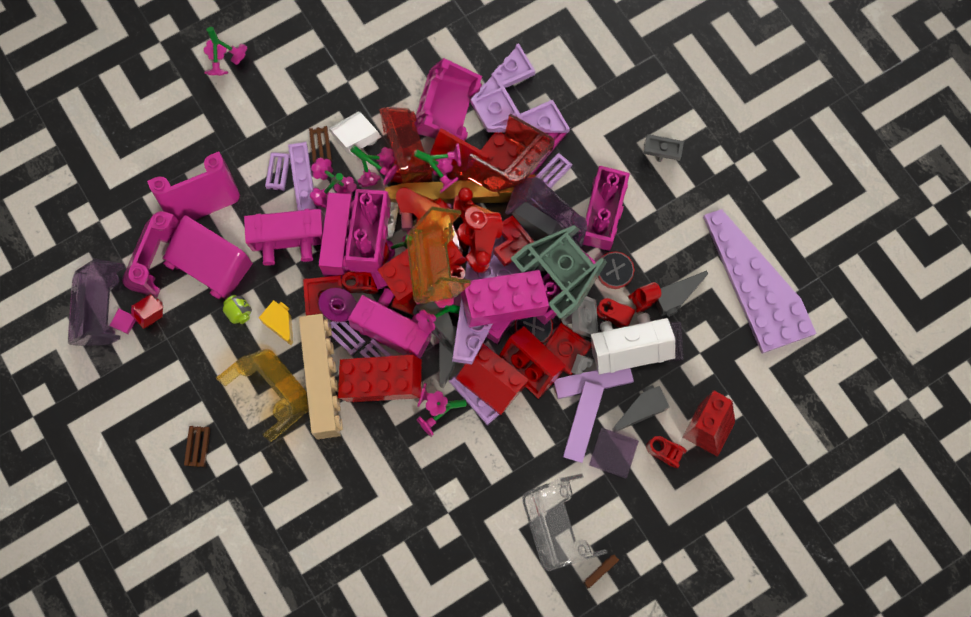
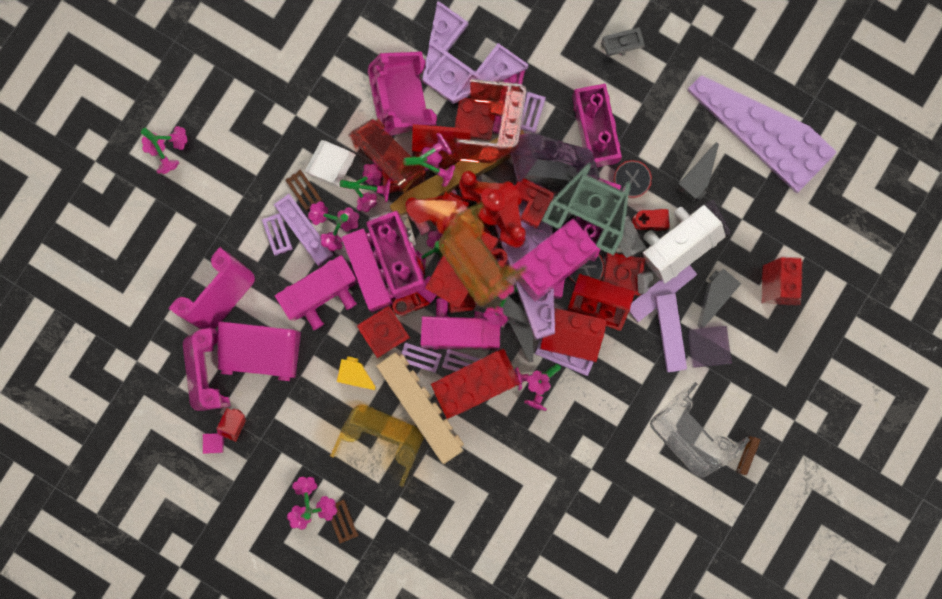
camera: 25 degrees left, 10 degrees up
(91, 303) = (176, 445): clear purple windscreen -> none
(162, 421) = (299, 516): none -> dark pink plant
(237, 309) = (311, 382): lime head -> none
(336, 298) = (402, 328): magenta dish -> none
(645, 296) = (672, 192): red piece -> none
(669, 453) = (757, 323): red piece -> none

